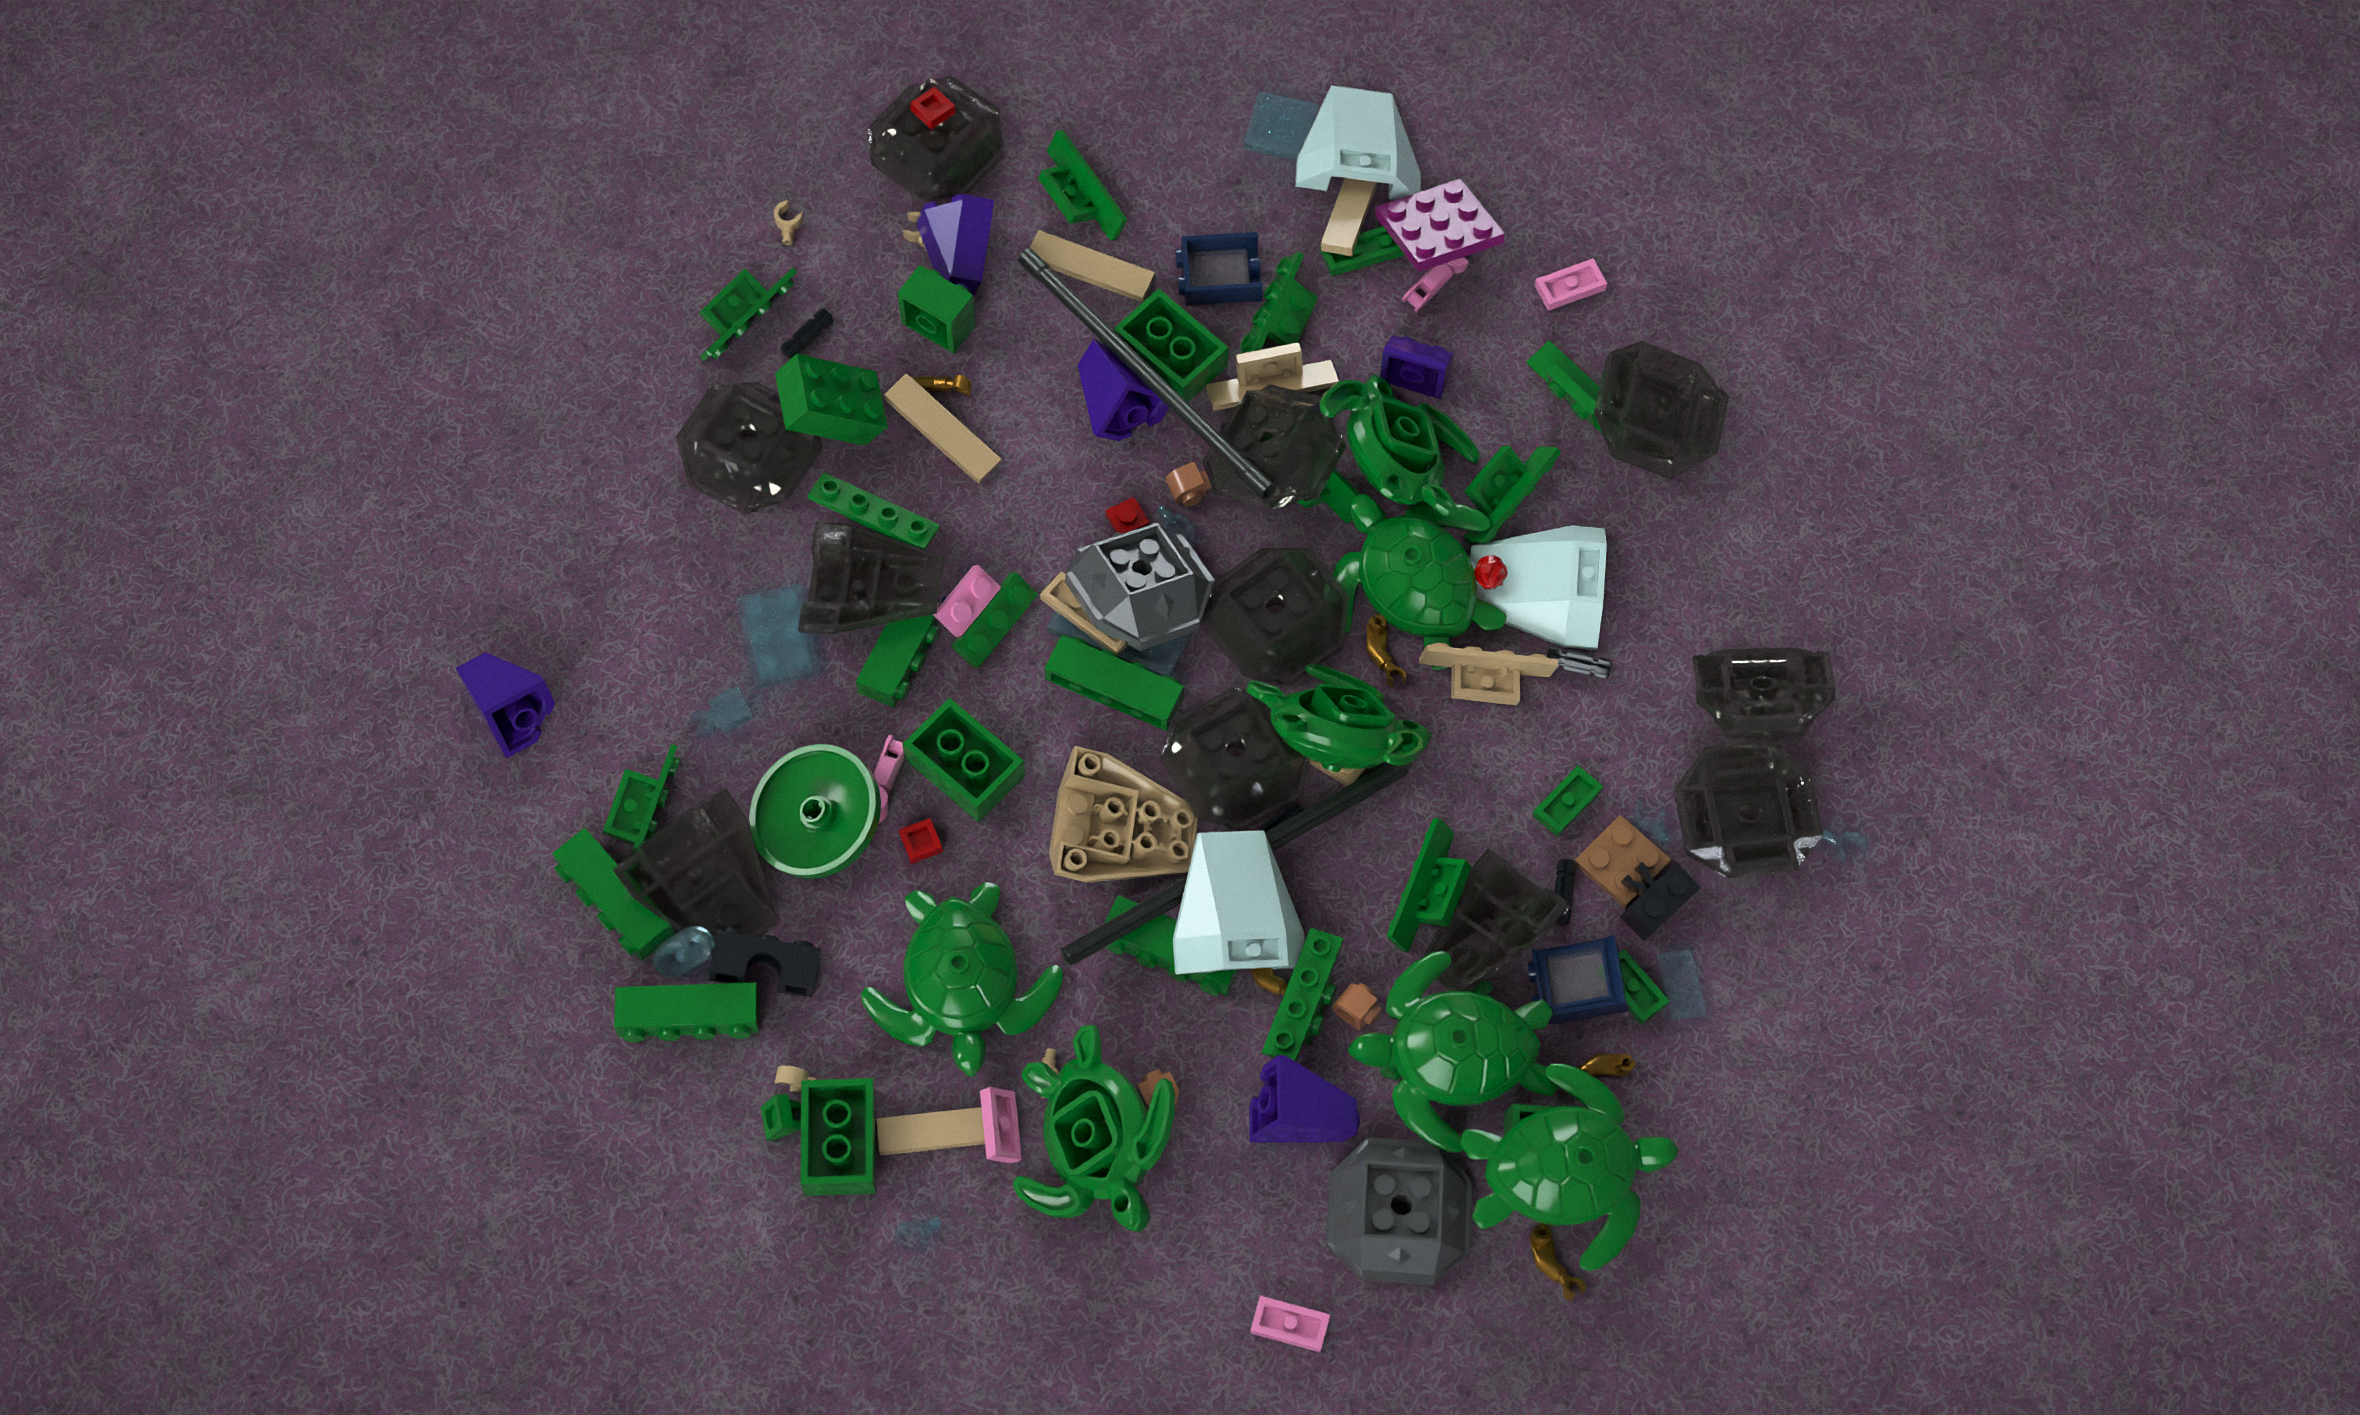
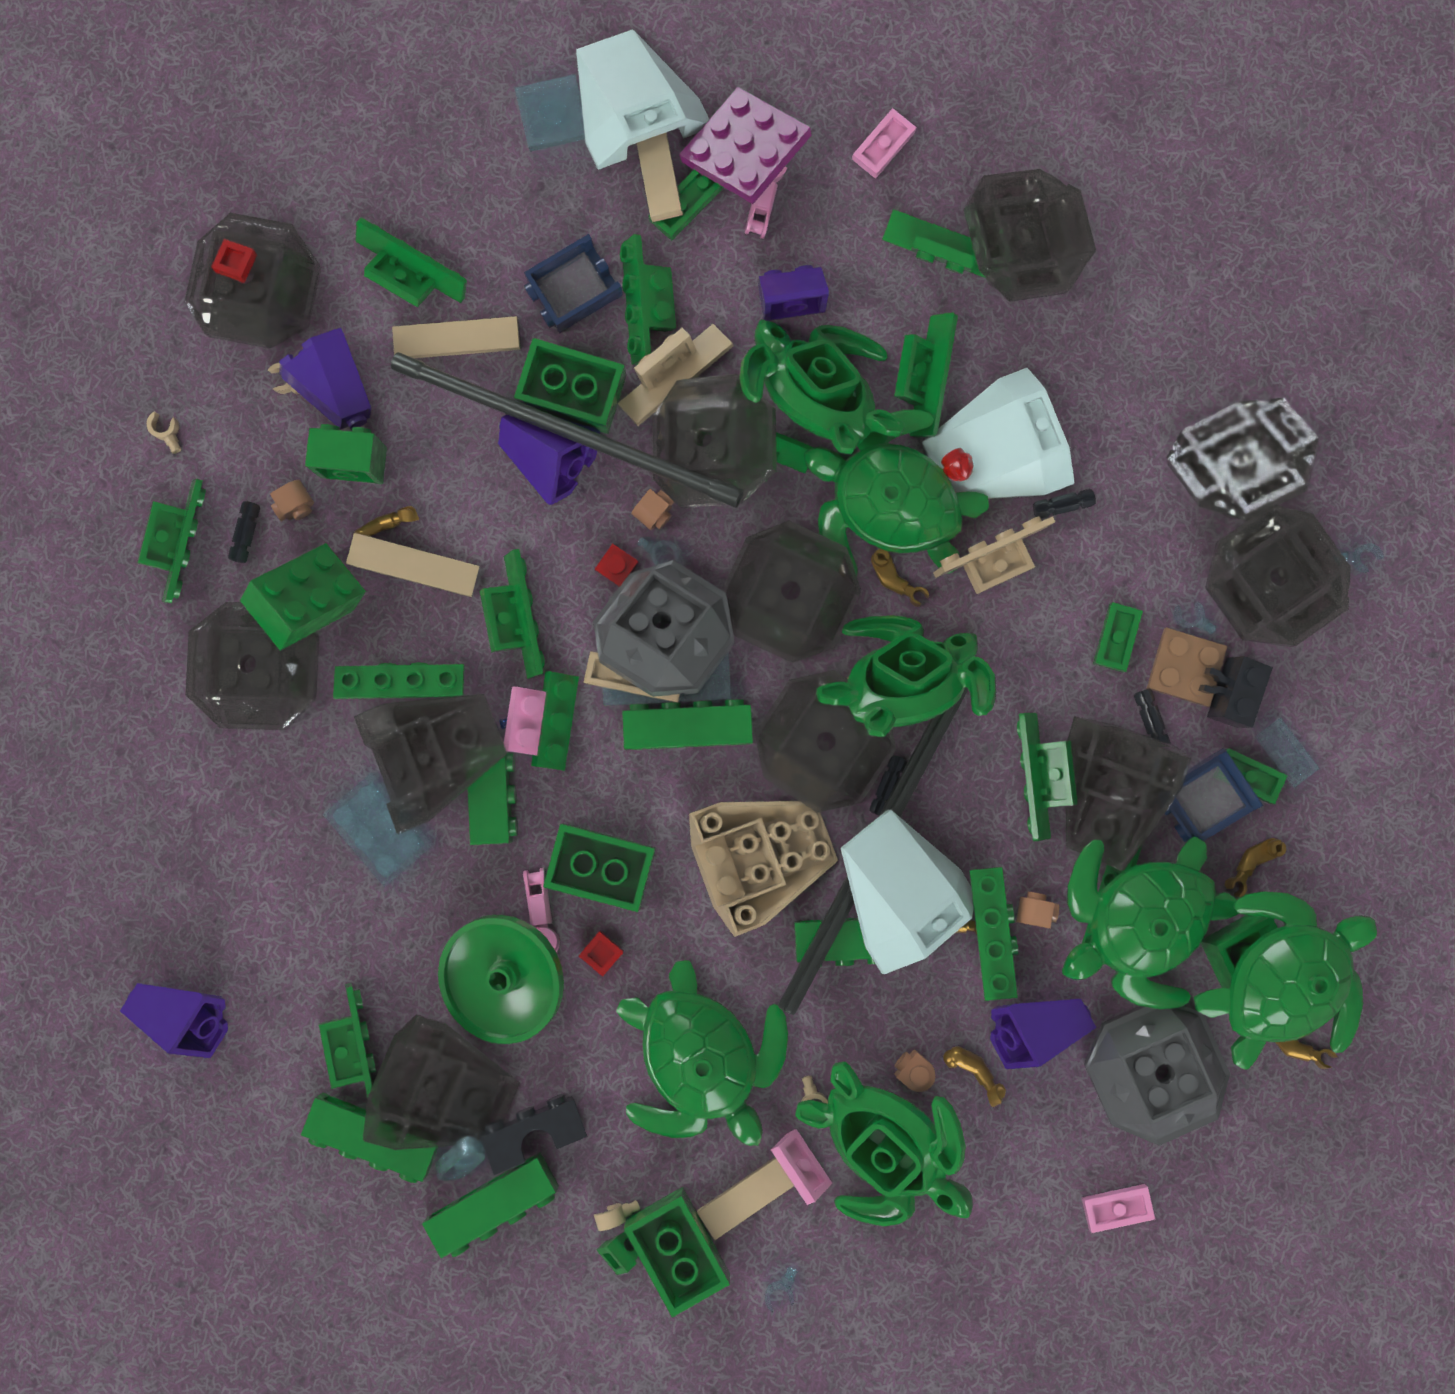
camera: 25 degrees left, 20 degrees up
(726, 711) = (374, 923): clear light blue plate -> none
(865, 327) = (291, 501): none -> nougat plate
(1004, 513) = (510, 616): none -> green bracket
(1210, 1103) = (975, 1064): none -> pearl gold arm

